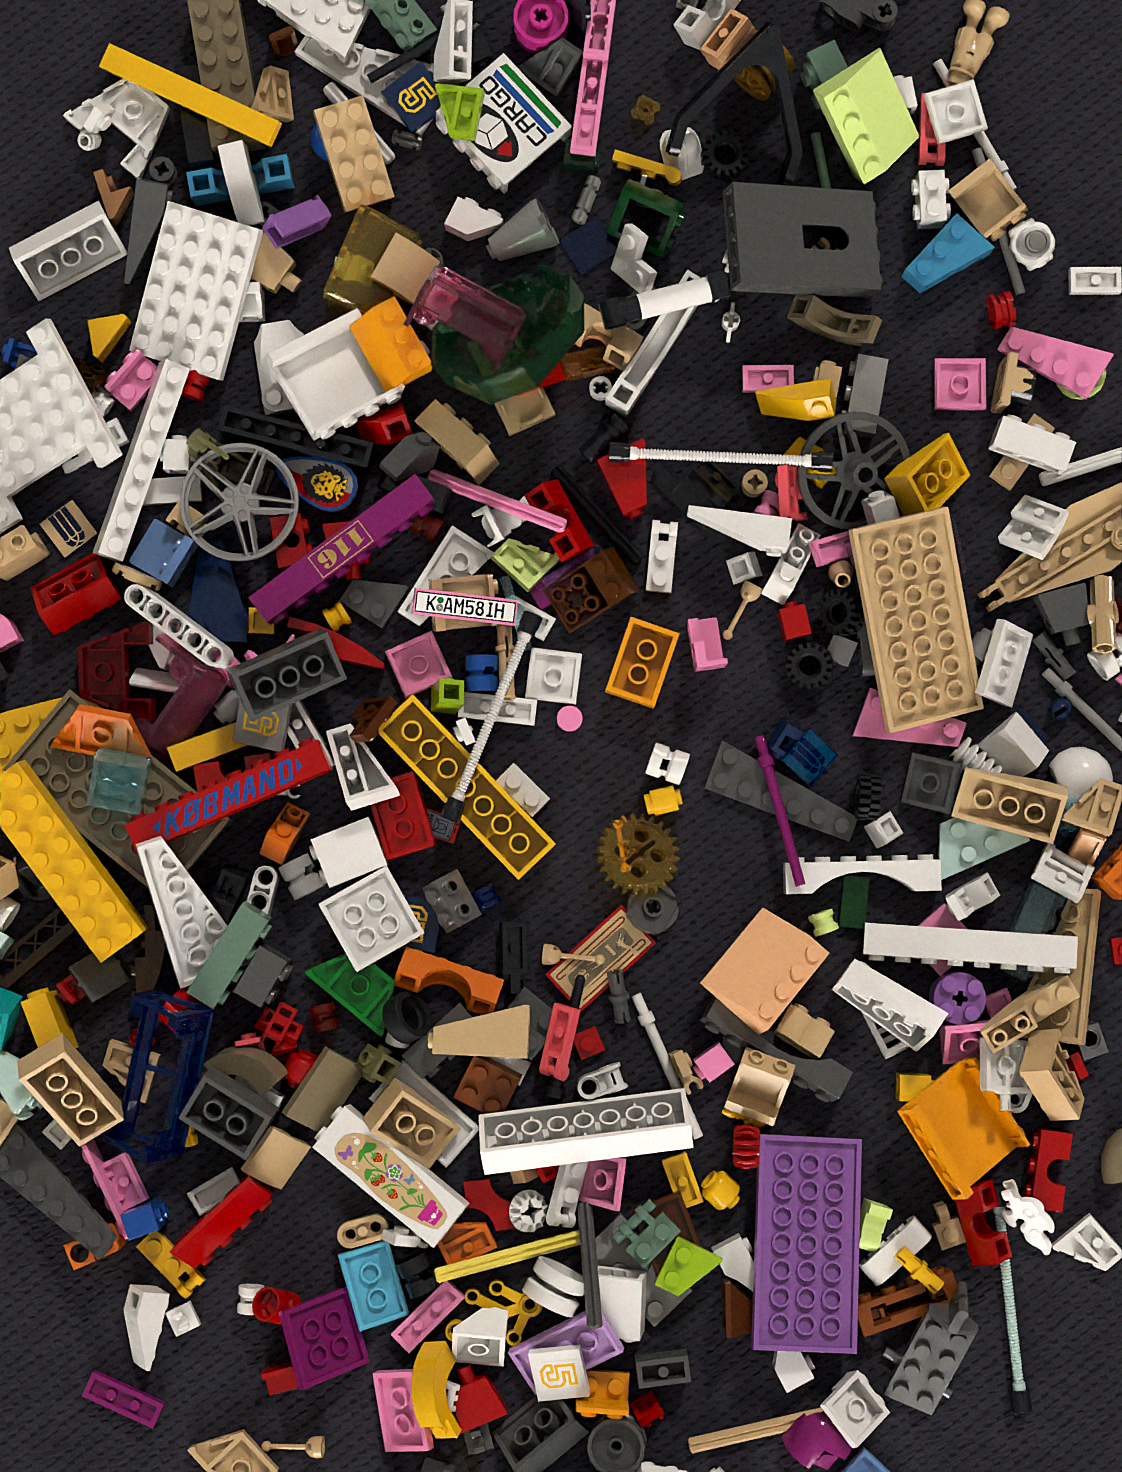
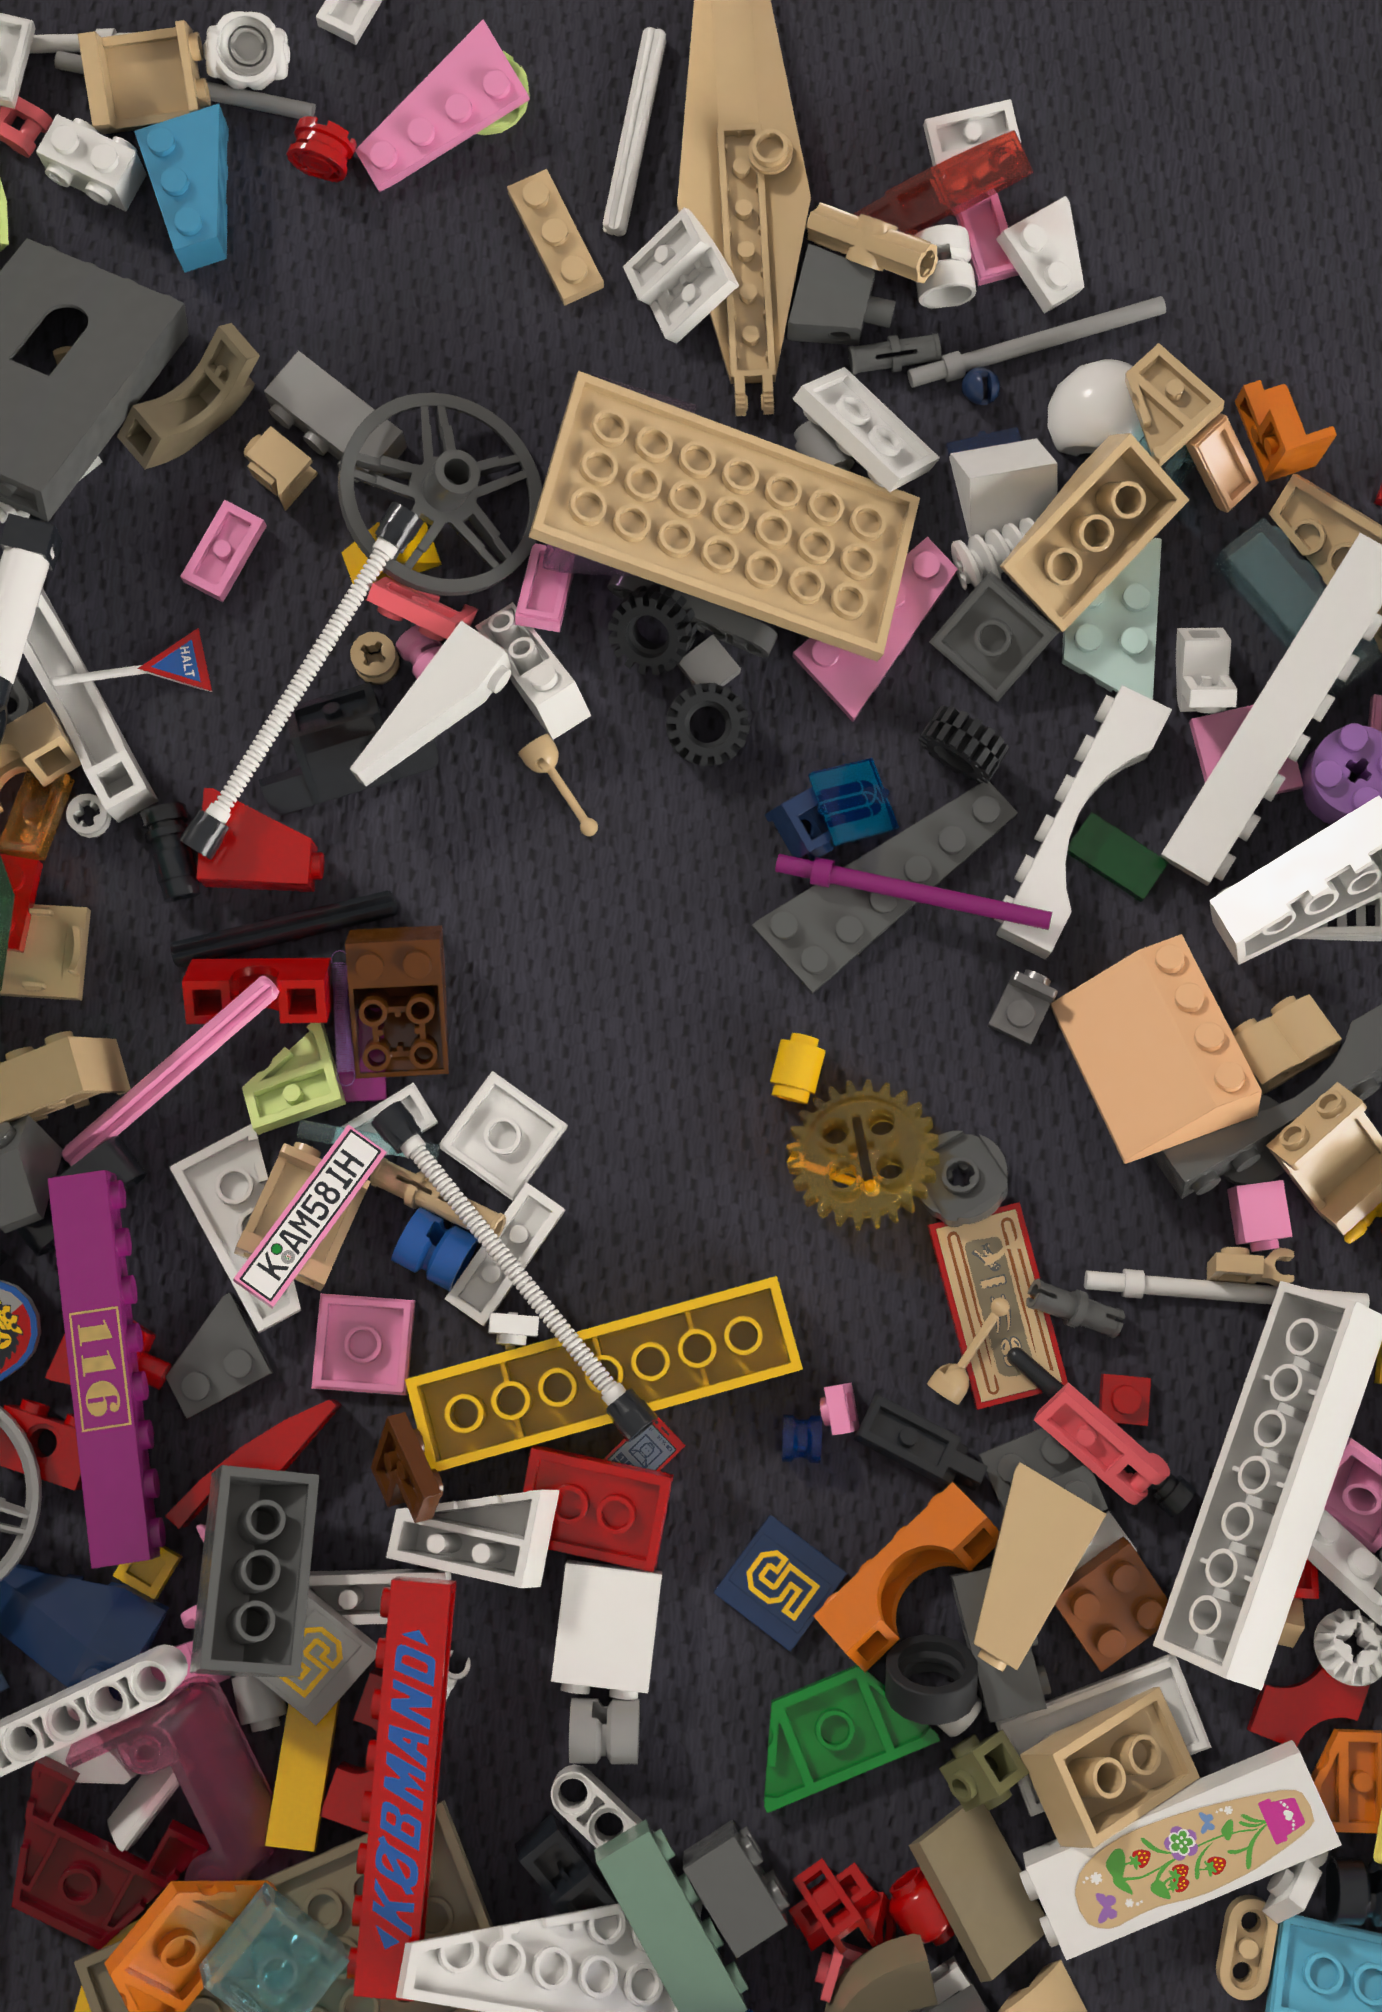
camera: 60 degrees left, 5 degrees down
(284, 833) = (517, 1720): orange slope -> none
(321, 1011) = (846, 1816): clear red wheel -> none
(336, 616) = (210, 1436): yellow wheel -> none
(371, 918) = (736, 1650): white plate -> none
(428, 526) = (149, 1207): clear red wheel -> none
(447, 696) = (440, 1324): lime brick -> none
(451, 901) = (778, 1499): flat silver brick -> none
(498, 523) = (208, 1089): white hair -> none
(510, 908) = (839, 1409): none -> bright pink plate
(523, 790) = (659, 1284): white plate -> none
(569, 718) = (585, 1147): bright pink tile -> none
(603, 1081) = (1200, 1408): white piece -> none
(642, 662) = (559, 981): light orange brick -> none
(661, 557) = (410, 864): white plate -> none
(675, 768) = (755, 1019): white wheel -> none
(700, 389) = (180, 663): none -> piece
(705, 644) = (586, 869): bright pink panel -> none
(730, 321) = (102, 560): white piece -> none
(744, 567) = (497, 746): white slope -> none
(753, 894) = (1023, 1006): none -> flat silver bracket
(794, 621) = (625, 711): red brick -> none
(799, 401) = (284, 518): yellow slope -> none
(823, 922) = (1125, 920): yellowish green wheel -> none
(841, 568) = (581, 601): tan cone -> none
(879, 507) = (519, 484): white brick -> none
(883, 830) = (1028, 752): white slope -> none
(928, 477) = (513, 390): yellow slope -> none
(959, 383) = (399, 272): bright pink tile -> none
(1012, 384) = (443, 189): tan piece -> none
(1032, 444) = (553, 208): white brick -> none
(1059, 877) = (1242, 511): white plate -> none

